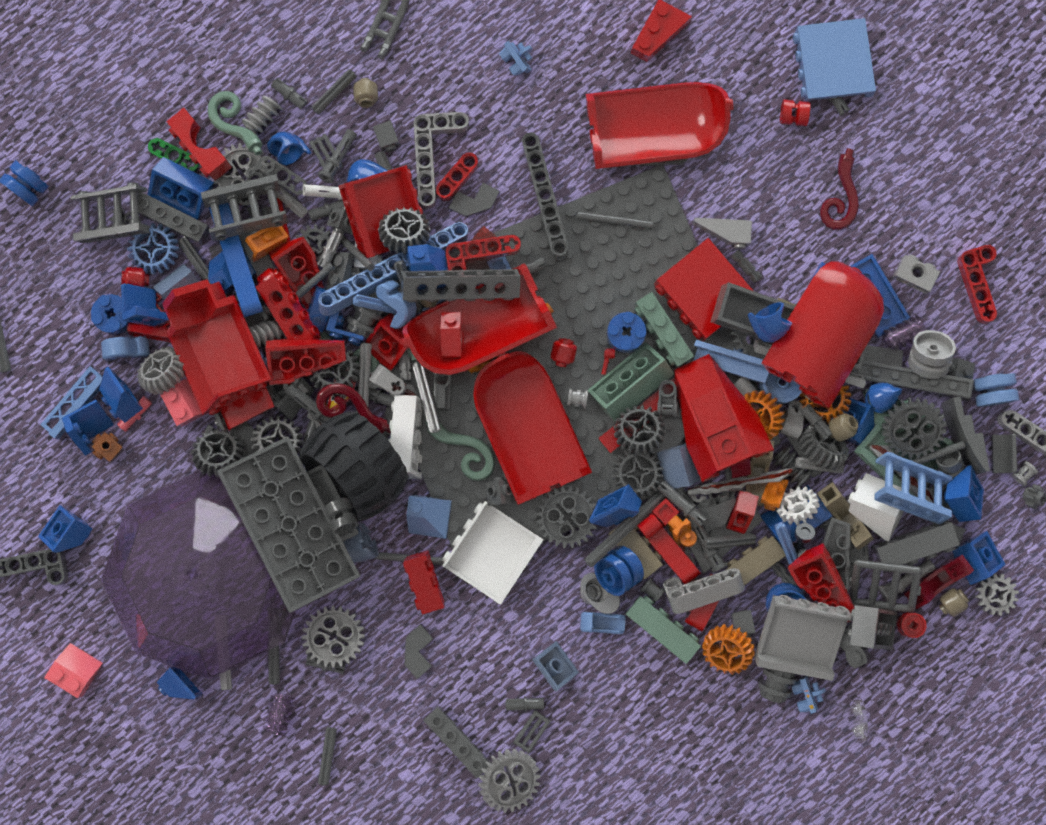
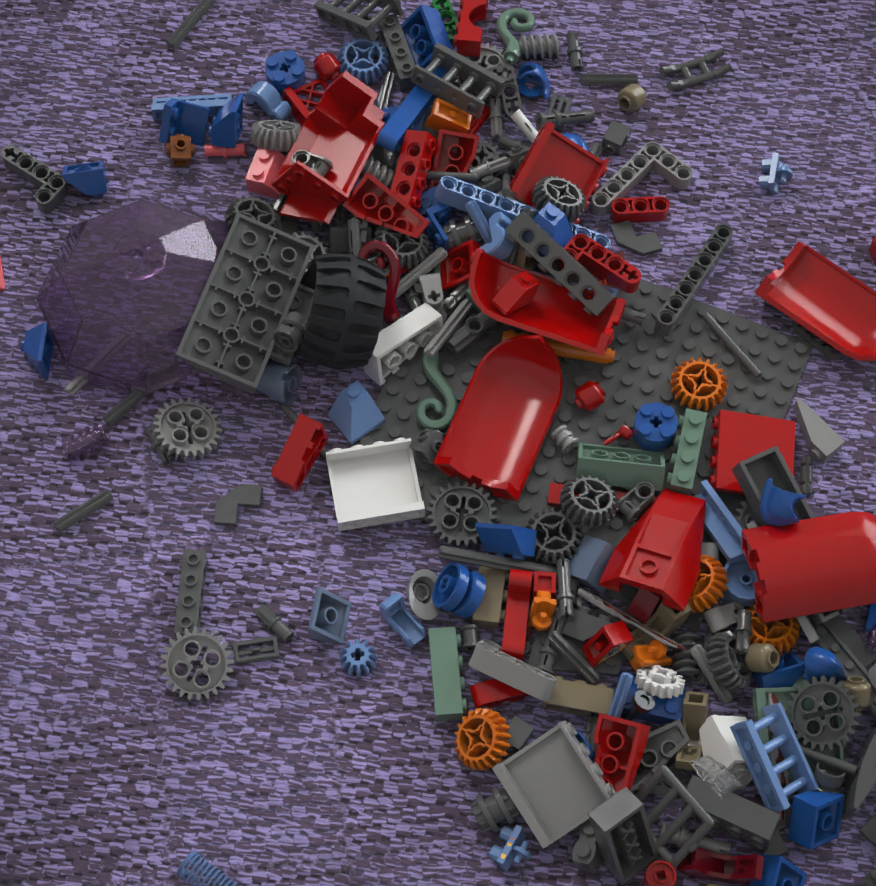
camera: 45 degrees right, 20 degrees down
(140, 306) = (310, 80): blue bracket -> none
(220, 375) = (317, 163): none -> dark grey piece
(592, 674) = (366, 660): none -> medium blue gear
(626, 280) = (689, 375): none -> orange gear
(891, 533) = (723, 778): none -> clear slope
(920, 389) = (860, 688): none -> dark tan head

